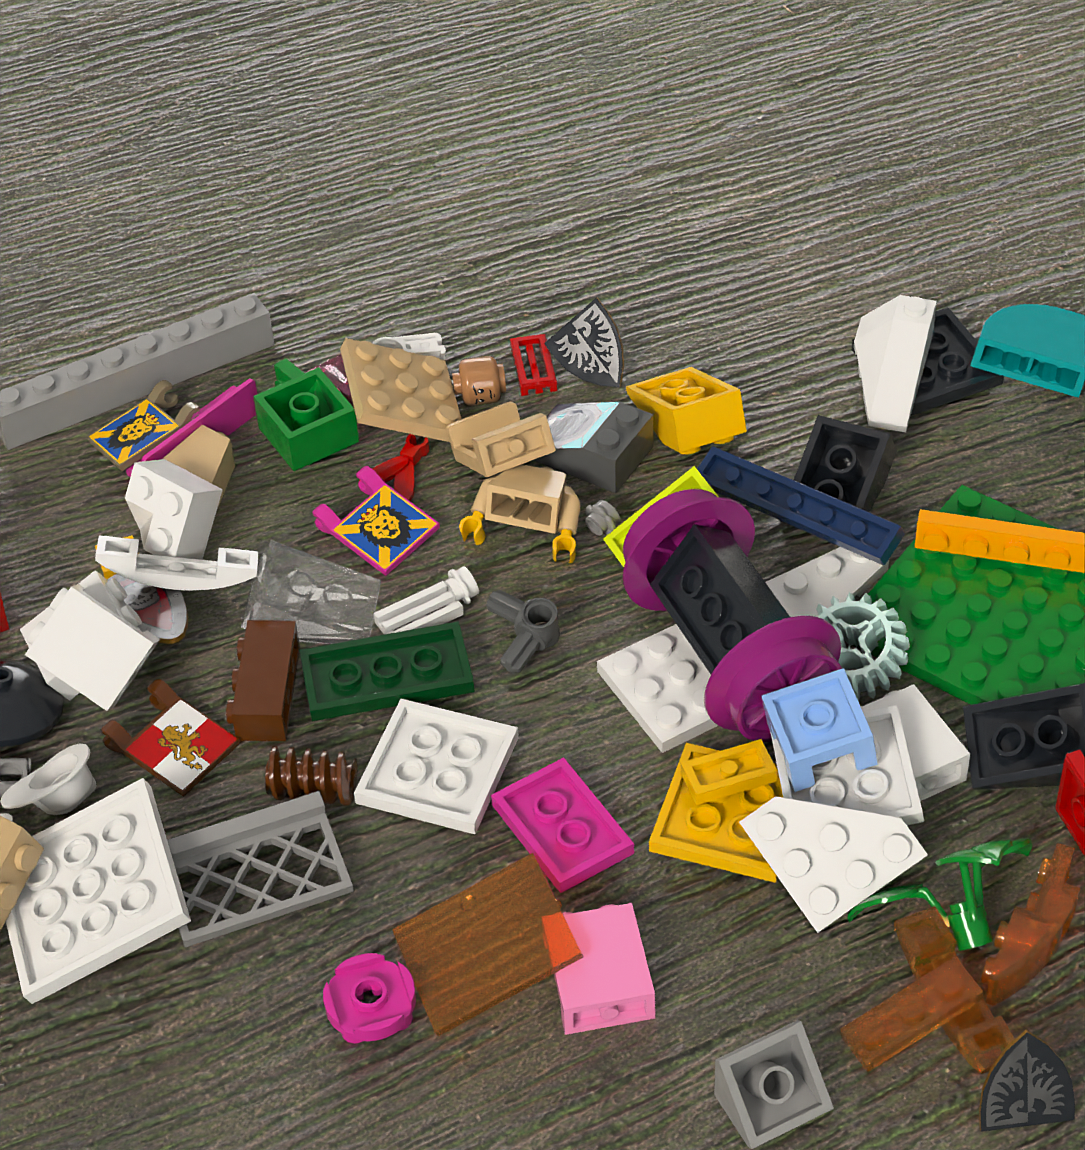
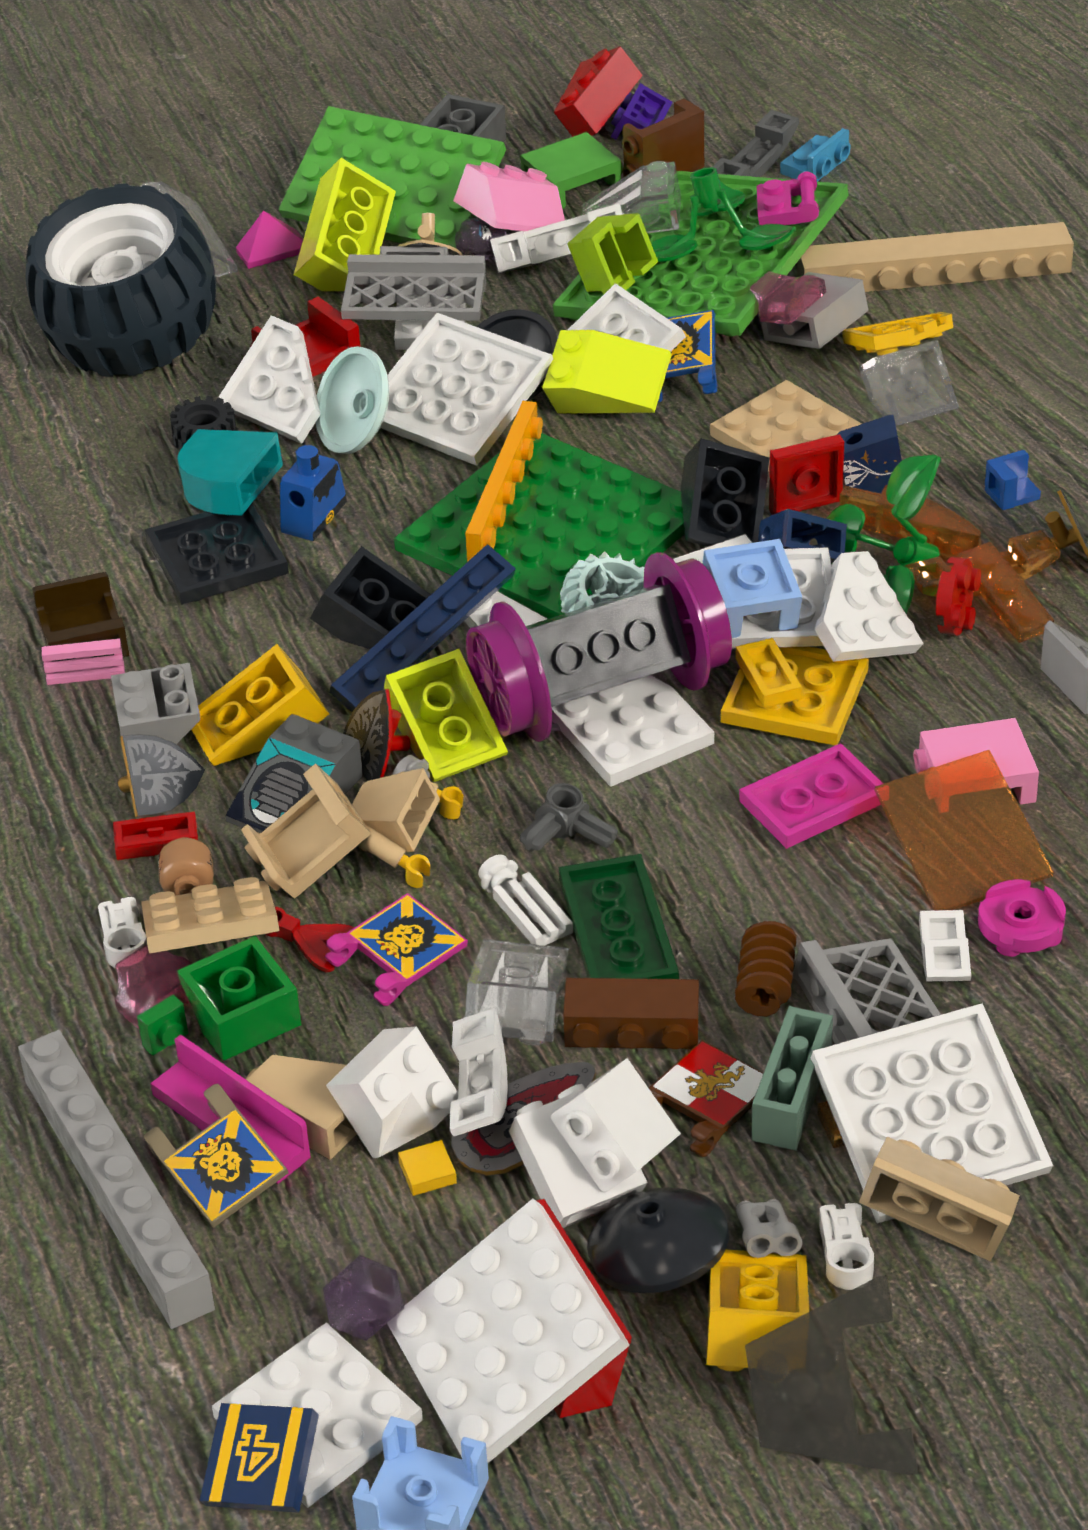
camera: 90 degrees left, 5 degrees down
(56, 785) = (783, 1165): white piece -> none
(184, 792) = (790, 1079): none -> sand green brick
(332, 933) = (944, 945): none -> white slope
(437, 766) = (741, 879): white plate -> none
(637, 476) = (374, 726): none -> shield
(677, 329) = (156, 702): none -> light grey slope
(753, 291) = (84, 666): none -> bright pink tile
(813, 287) = (79, 612): none -> dark brown panel
(852, 945) = (956, 596): none -> red plate
(891, 358) = (214, 549): white wedge -> none
(957, 798) = (798, 529): none -> dark blue torso
(1012, 411) = (310, 494): none -> blue torso

